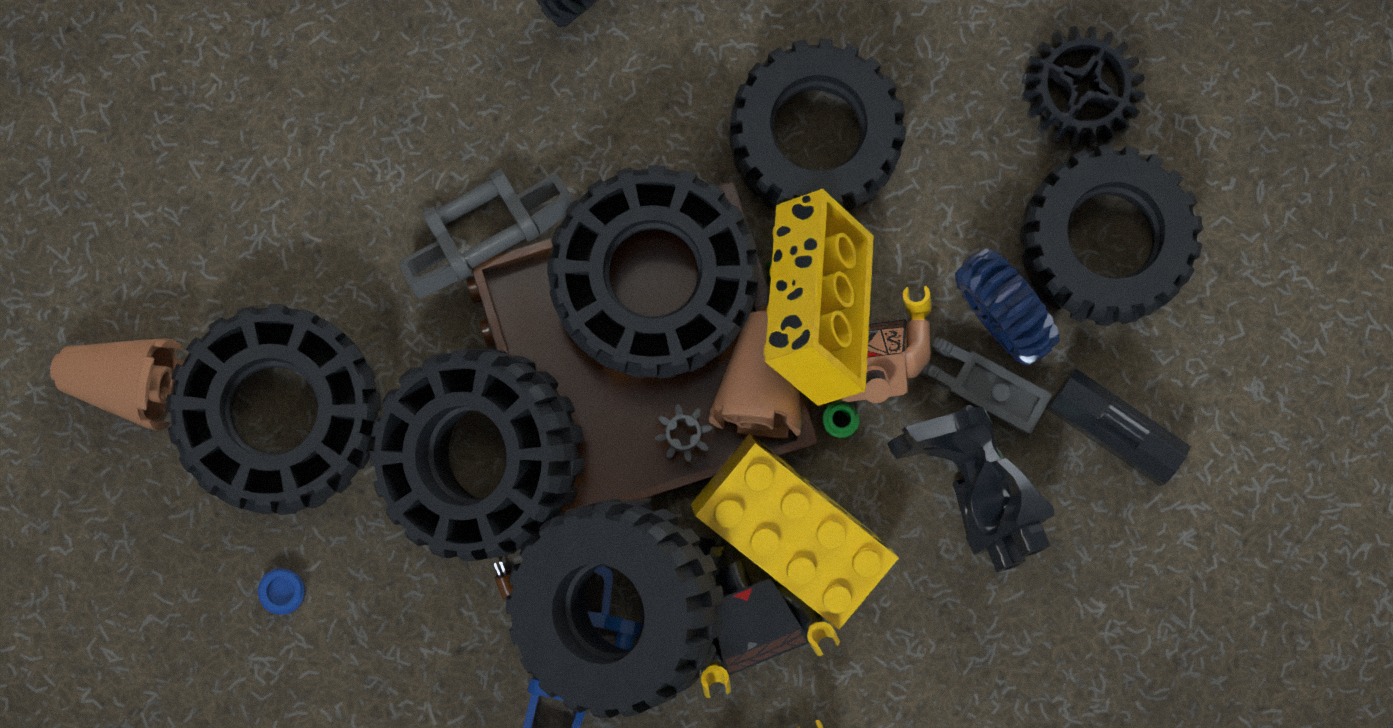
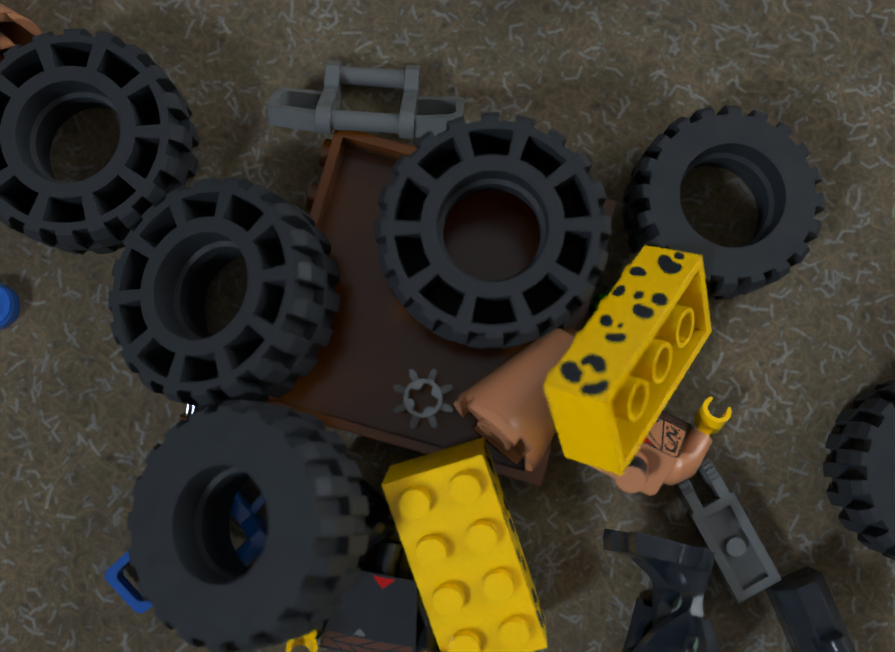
camera: 35 degrees right, 0 degrees up
(848, 409) = (585, 483): green pin -> none
(1007, 306) = (797, 476): dark blue gear -> none

